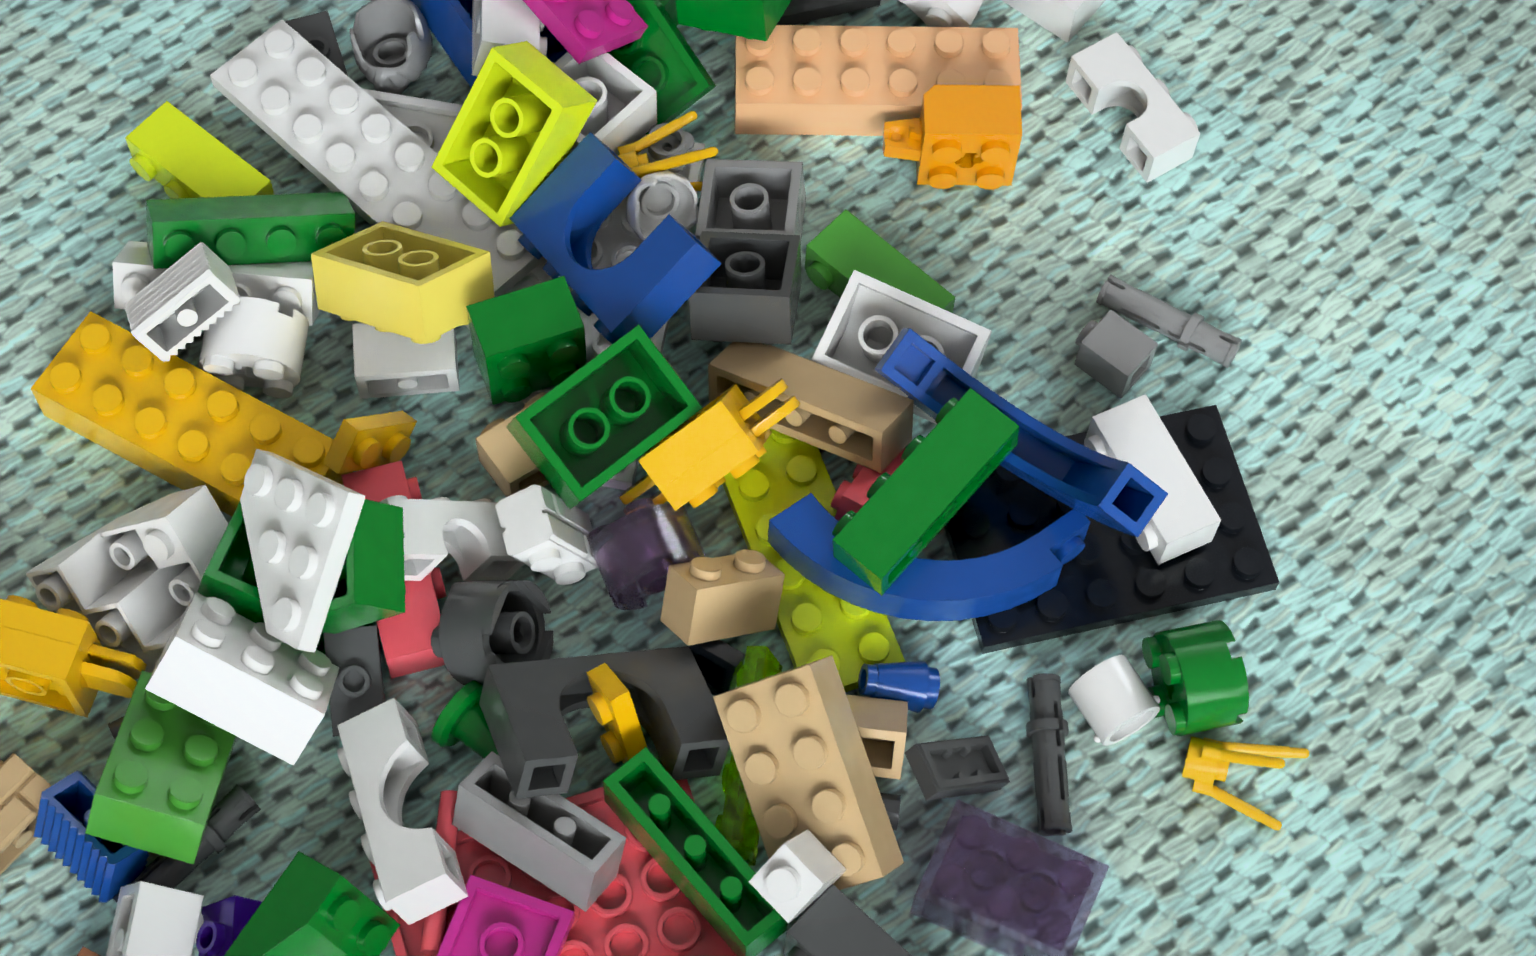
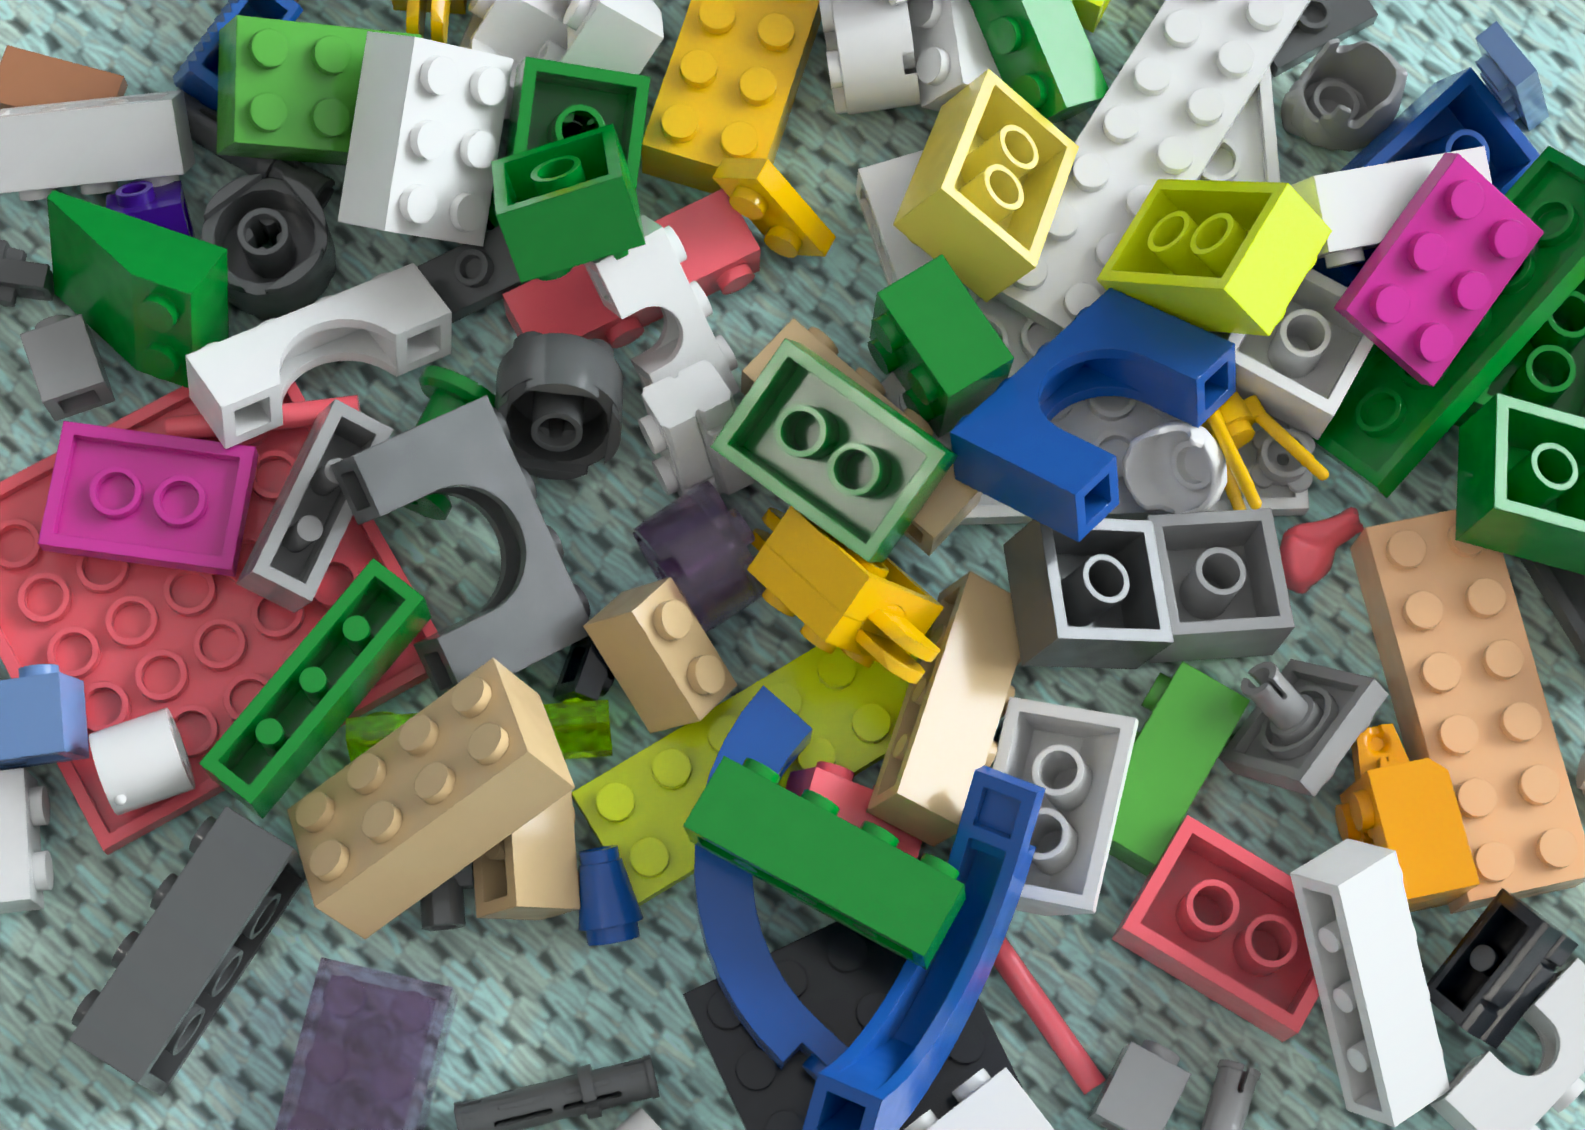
camera: 75 degrees right, 10 degrees up
(278, 812) = (292, 222): none -> dark grey brick
(297, 543) = (575, 142): white plate -> none
(615, 710) = (474, 567): yellow plate -> none
(727, 144) = (1310, 548): none -> coral animal
(797, 875) = (291, 803): white brick -> none
(872, 177) = (1301, 724): none -> light grey plate
(957, 767) = (506, 984): dark grey plate -> none
(1012, 257) = (1225, 929): none -> coral brick
(1064, 398) = (1047, 1019): none -> coral bar
(1069, 103) = (1499, 968): none -> black brick
(1070, 173) = (1370, 981): none -> white brick

